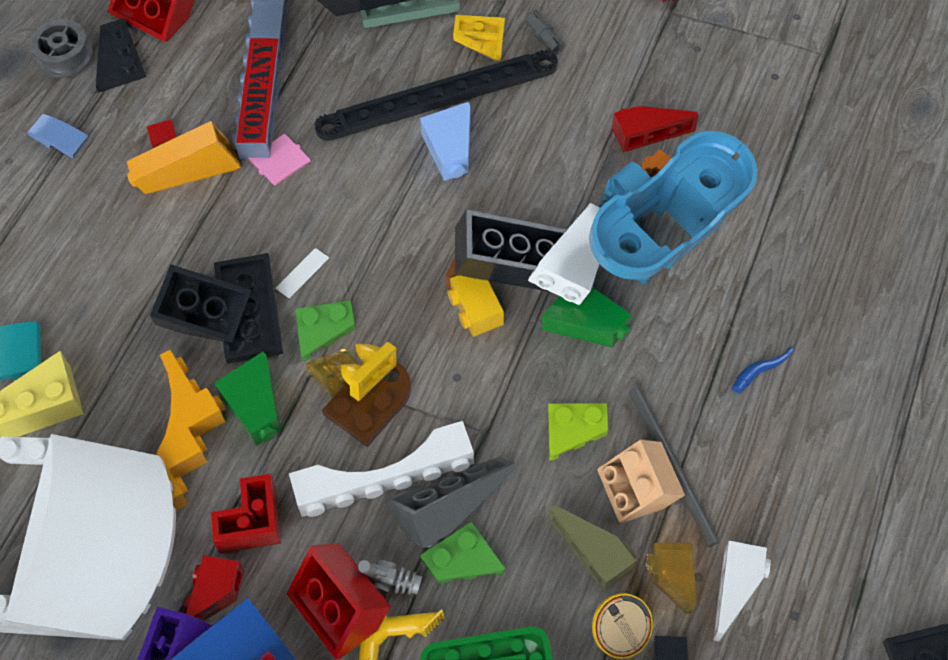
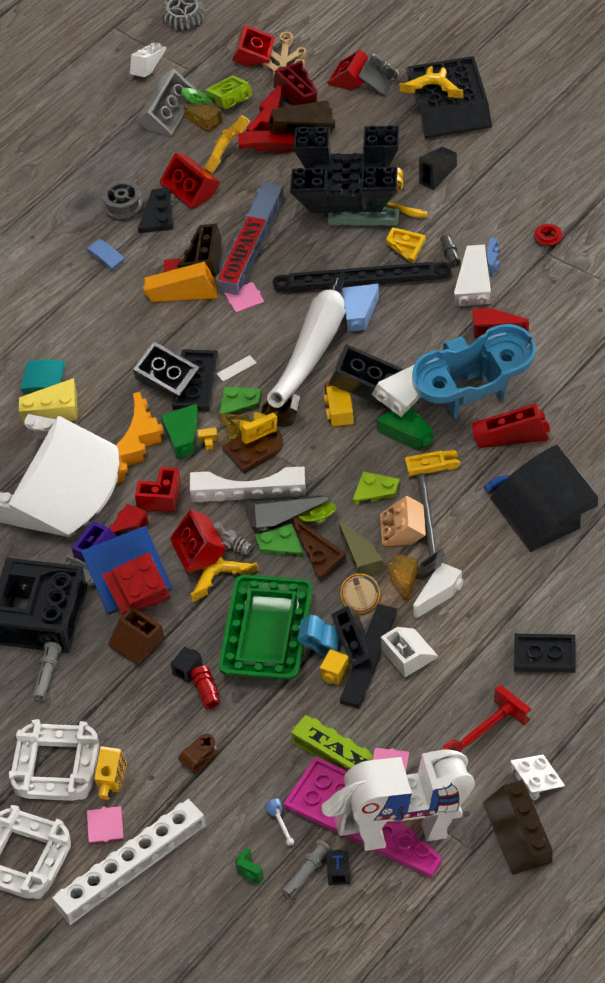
camera: 20 degrees right, 10 degrees down
(201, 100) = (204, 248): none -> dark brown wedge
(296, 400) = (207, 436): none -> yellow tile
(398, 331) = (286, 413): none -> dark brown brick
(406, 202) = (315, 336): none -> white animal
(509, 495) = (318, 513): none -> lime dish
(532, 561) = (321, 553): none -> reddish brown wing
(594, 66) = (473, 279): none -> white slope
(606, 31) = (492, 256): none -> medium blue slope
(641, 365) = (432, 462): none -> yellow hinge
(714, 545) = (430, 564): none -> dark grey tile
(739, 283) = (512, 427): none -> red slope
(836, 390) = (544, 498): none -> black slope

